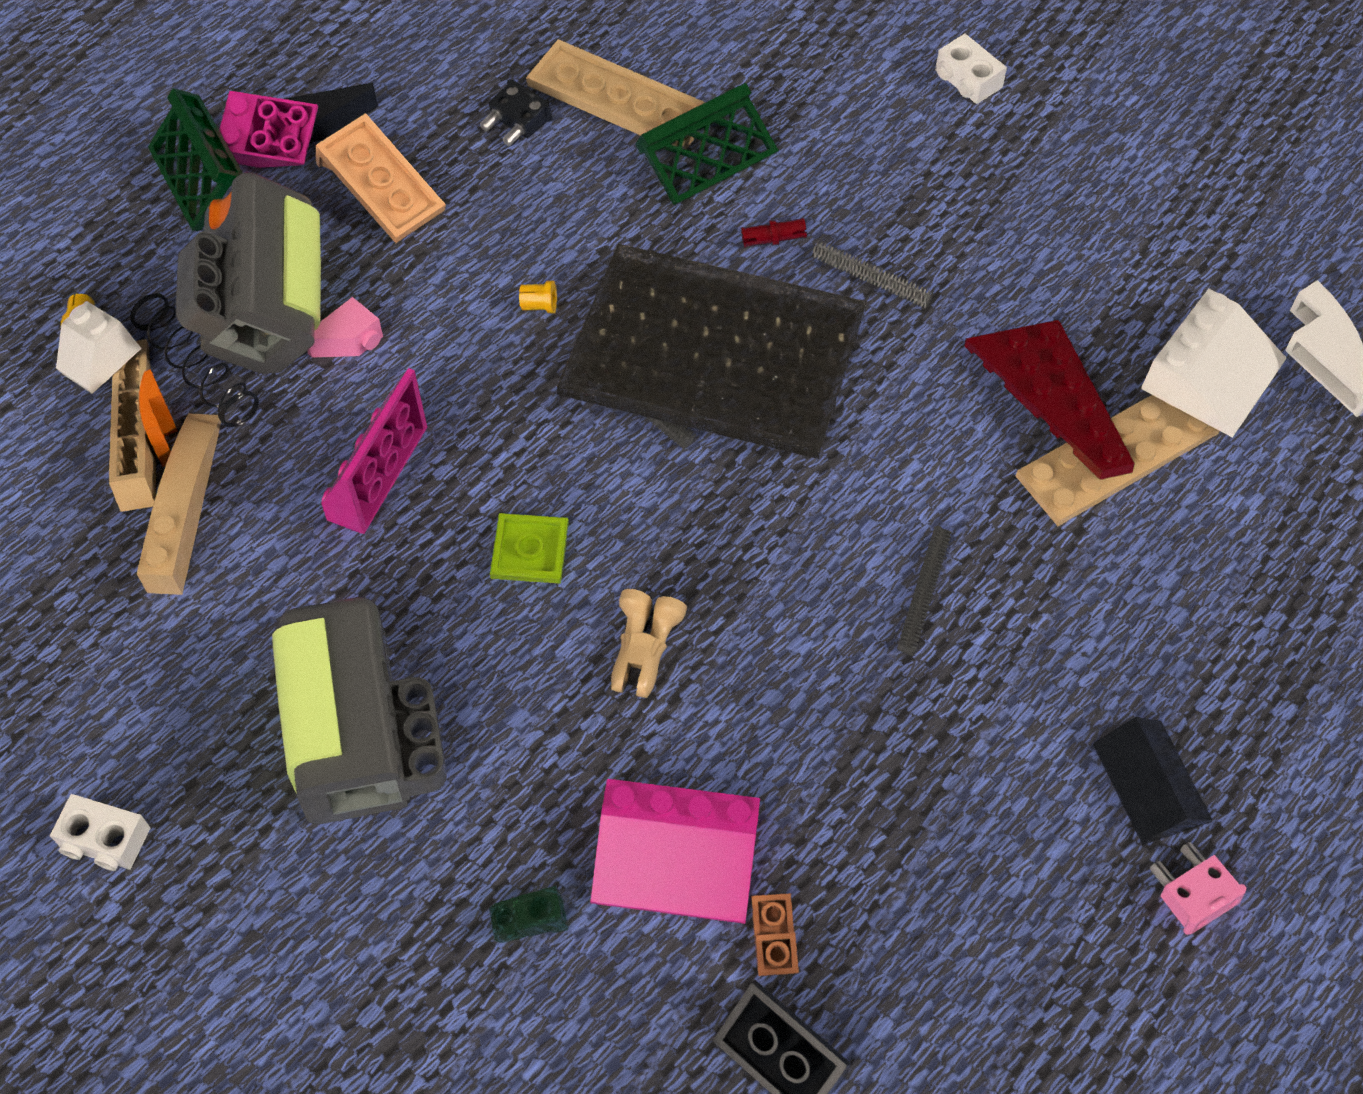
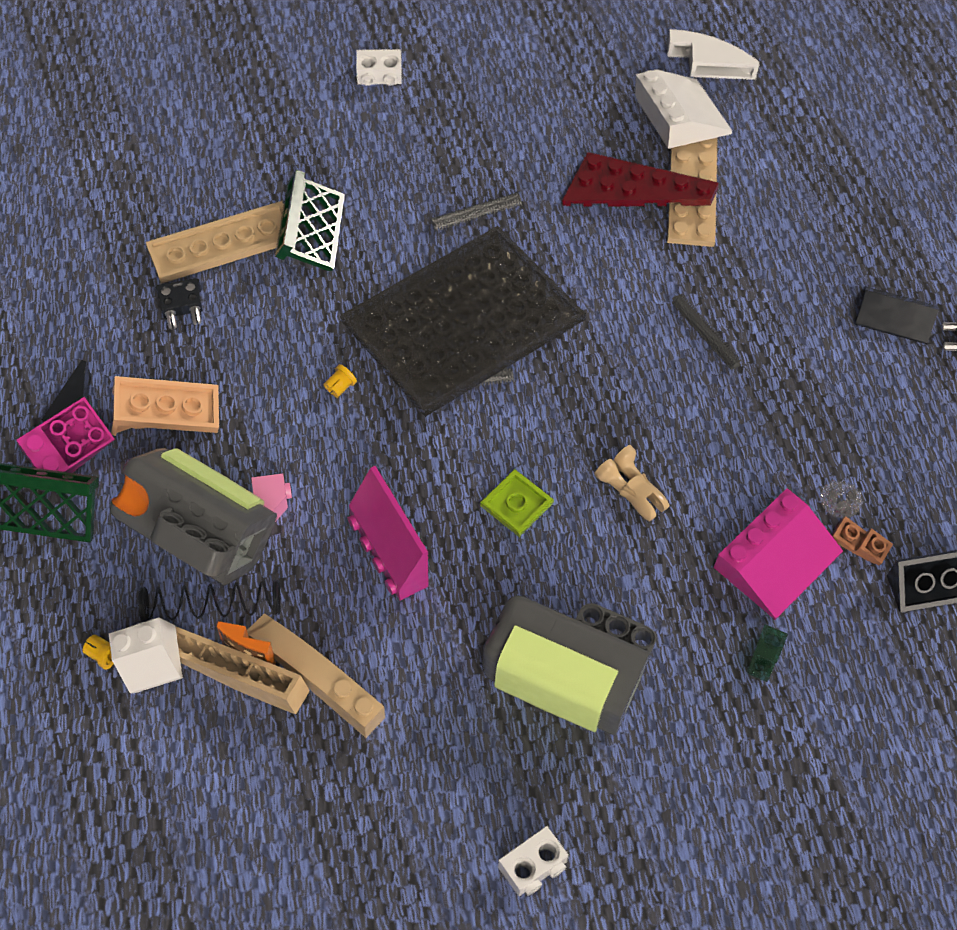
camera: 55 degrees left, 0 degrees up
(773, 232) = (404, 236): dark red pin -> none
(802, 886) = (844, 508): none -> clear gear

